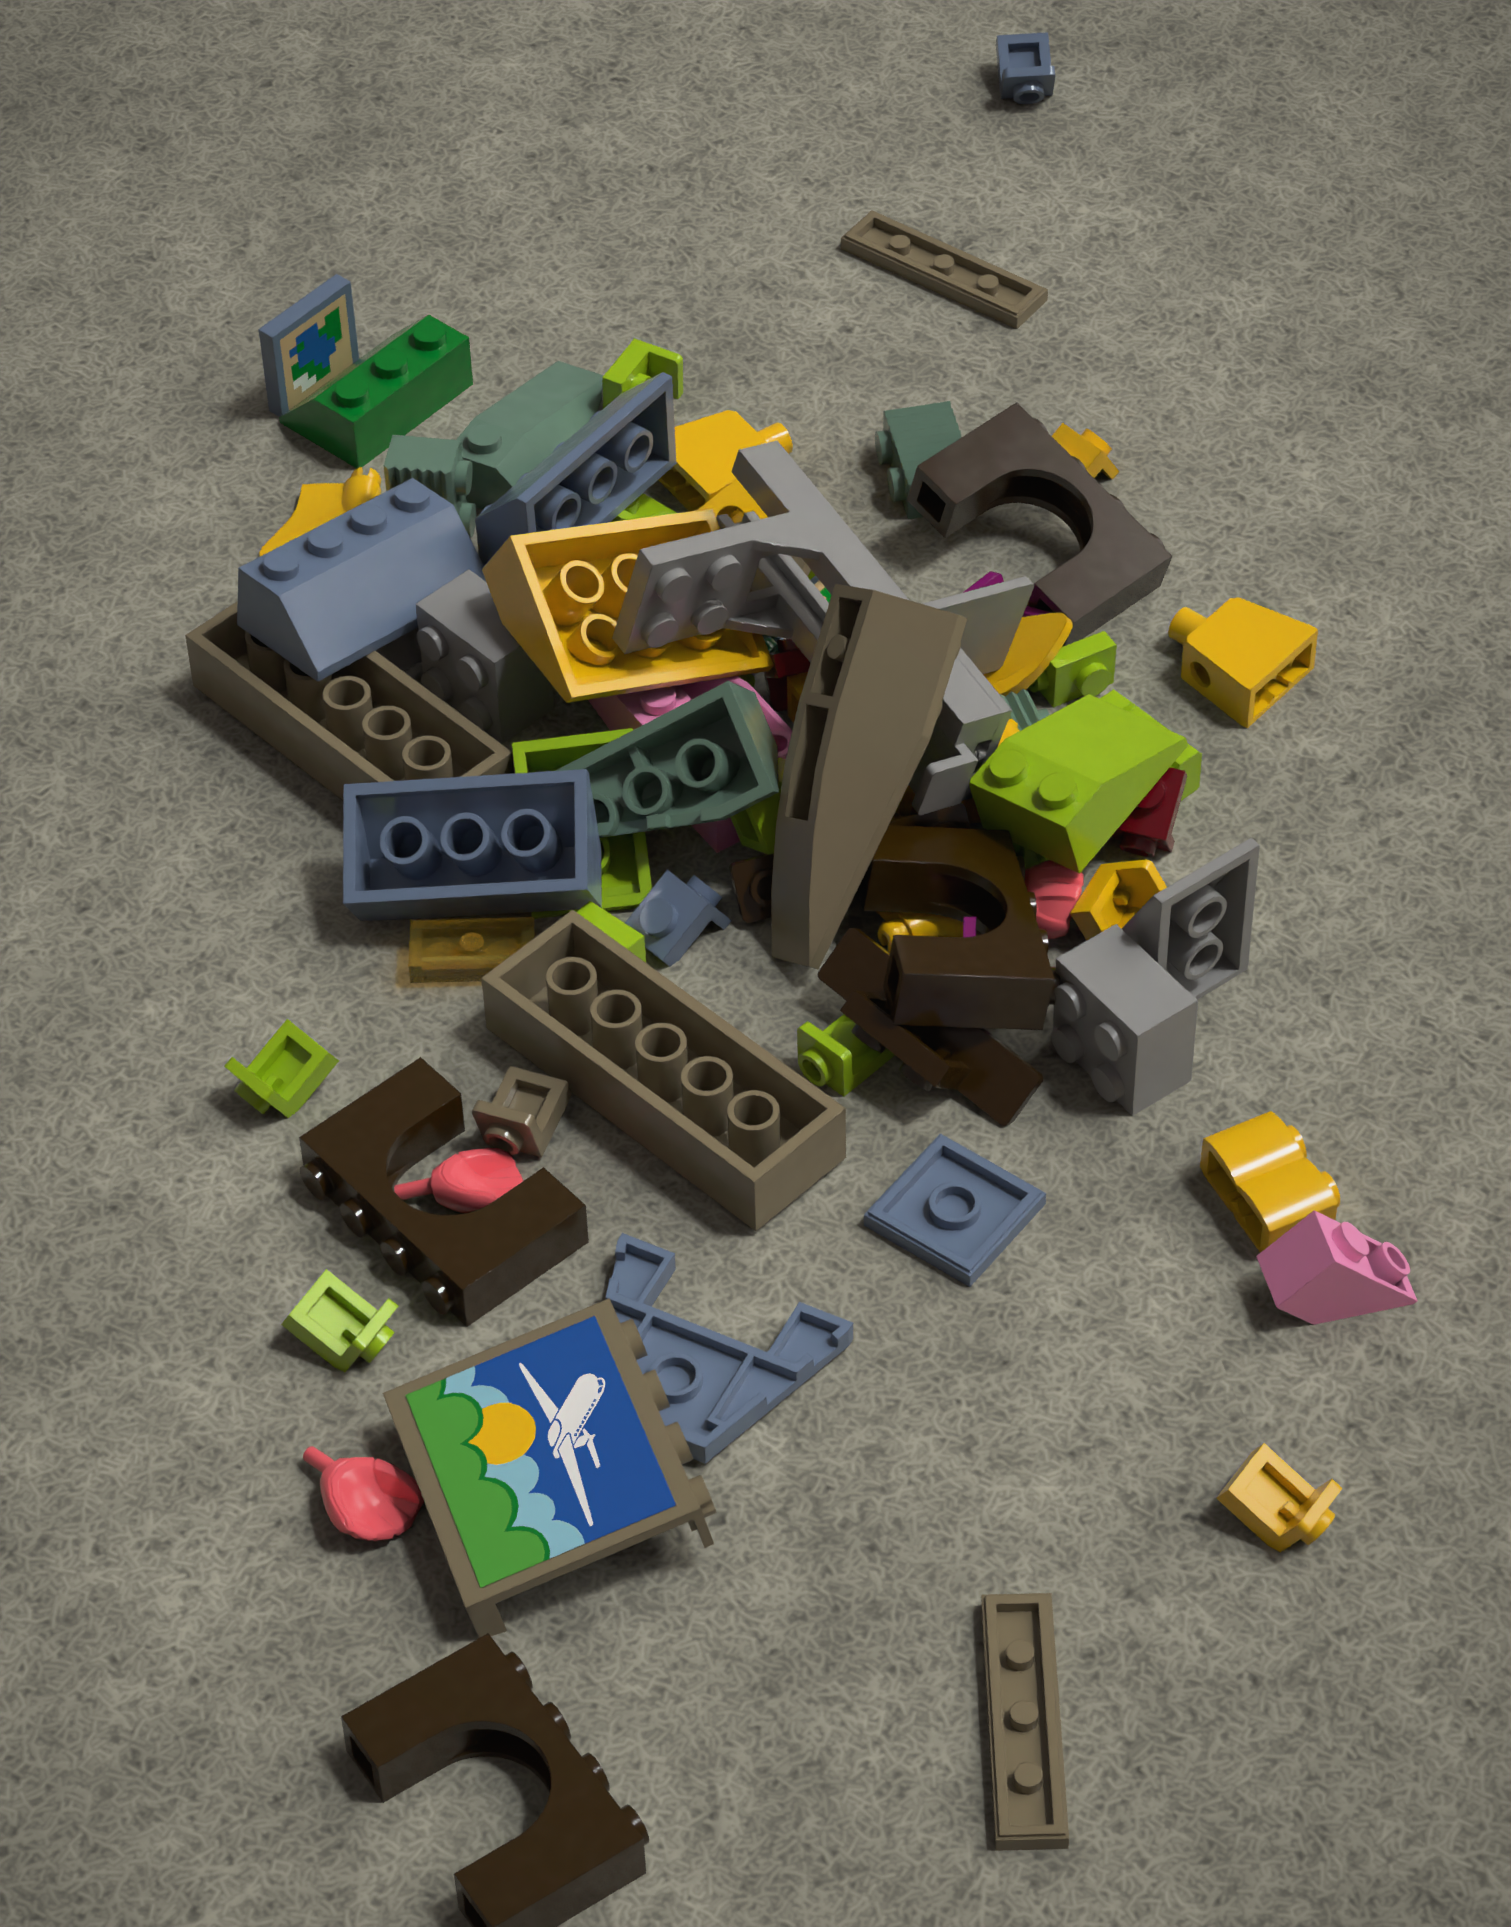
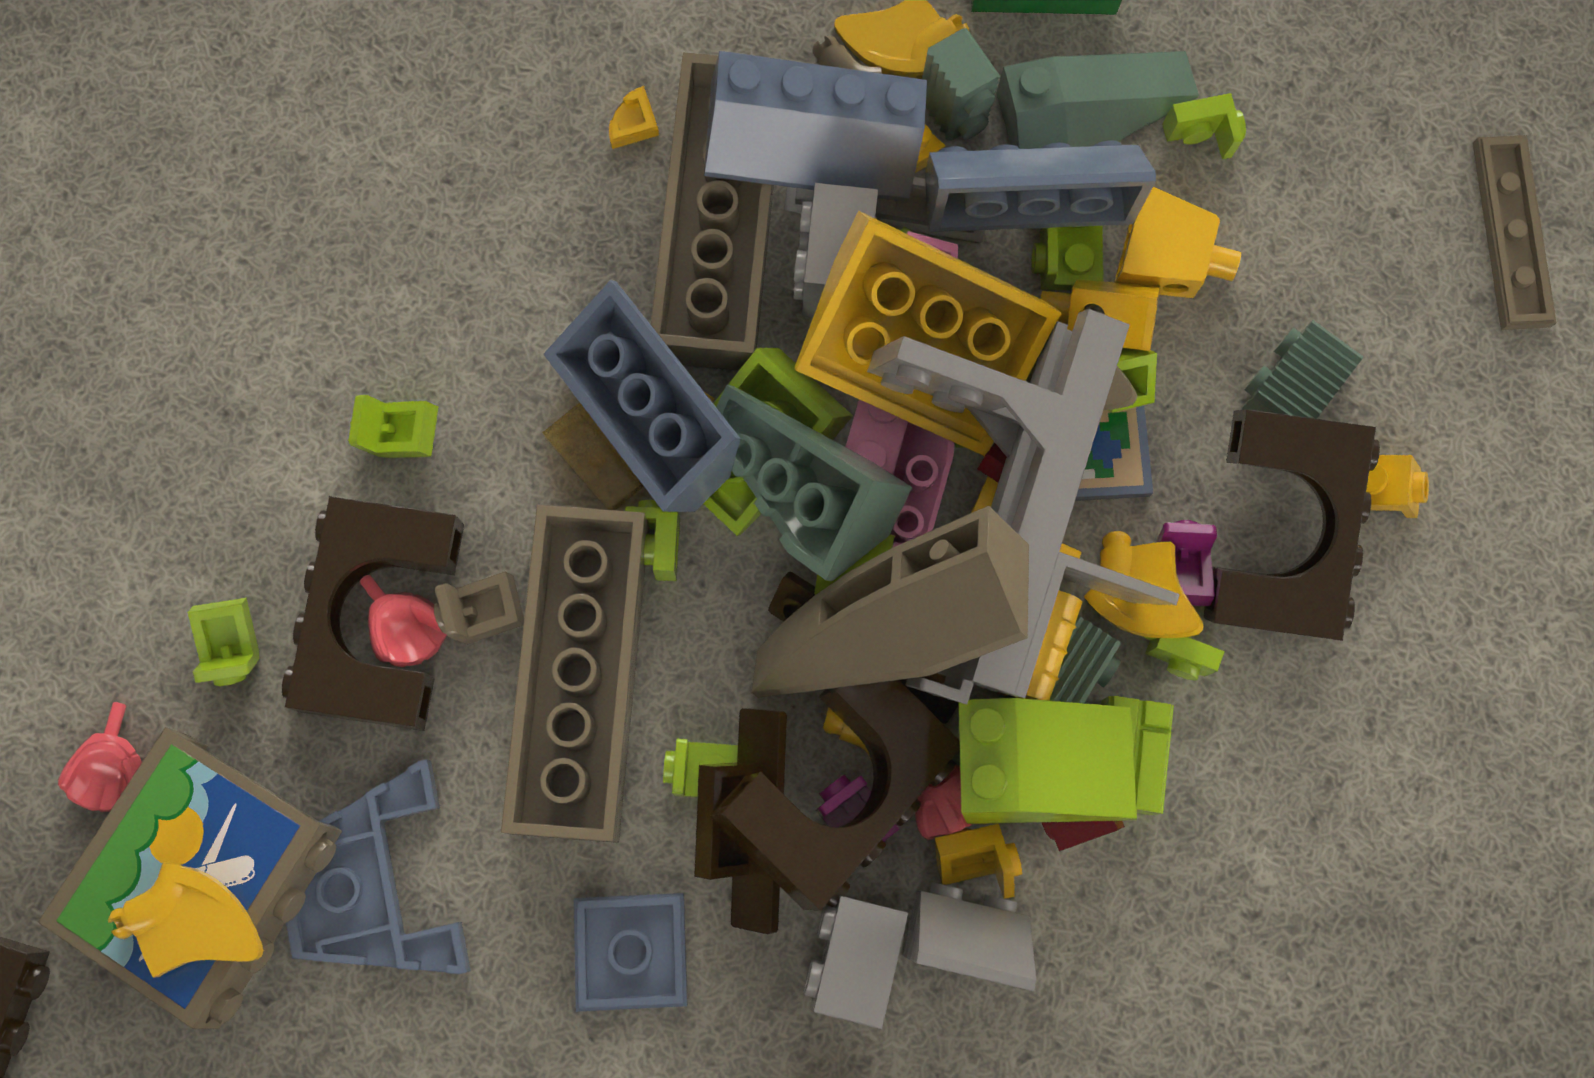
camera: 45 degrees right, 30 degrees up
(186, 741) = (633, 120): none -> yellow tile
(595, 1448) = (187, 920): none -> yellow arm
(676, 915) = (732, 564): sand blue bracket -> none
(1243, 656) = (1296, 756): yellow torso -> none

